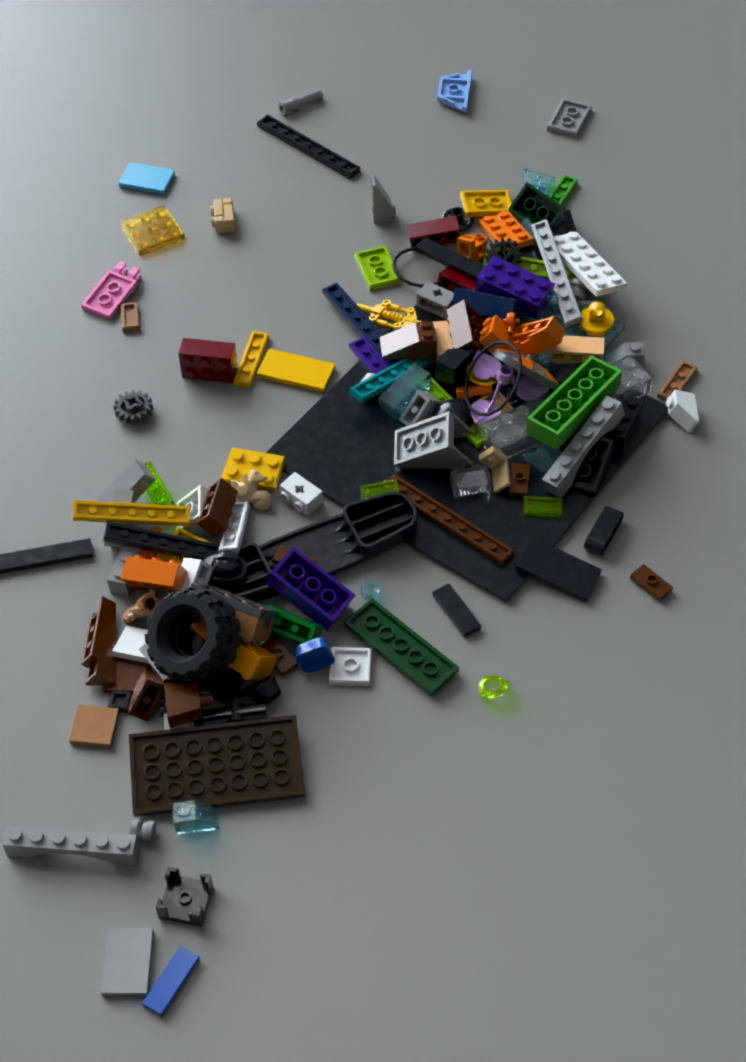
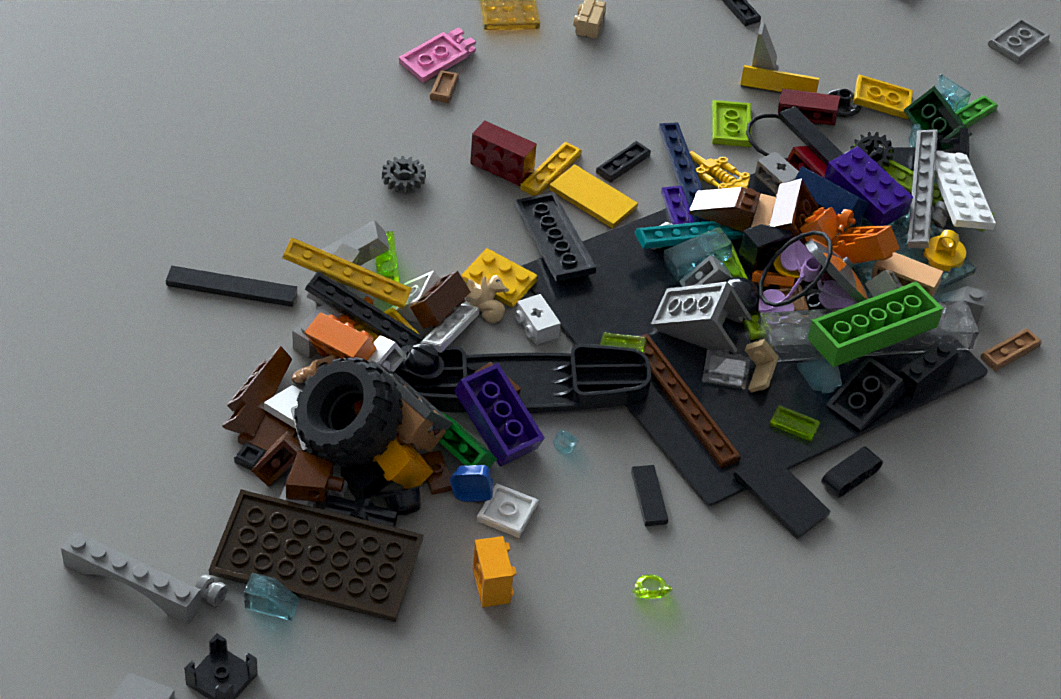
camera: 15 degrees right, 5 degrees down
(94, 726) = (212, 471): medium nougat tile -> none
(283, 417) = (555, 236): none -> black plate
(306, 331) = (623, 161): none -> black tile
(365, 724) = (493, 571): none -> light orange container
(399, 218) = (777, 80): none -> yellow tile
(401, 647) = (571, 510): dark green plate -> none
(474, 244) = (844, 132): orange tile -> none
(505, 226) = (891, 124): orange plate -> none
(519, 480) = (781, 387): reddish brown plate -> none
(563, 366) = (883, 283): none -> light grey panel
(563, 471) = (831, 394): light grey arch -> none
(651, 582) = (880, 545): reddish brown plate -> none
(683, 409) = (1002, 378): white slope -> none

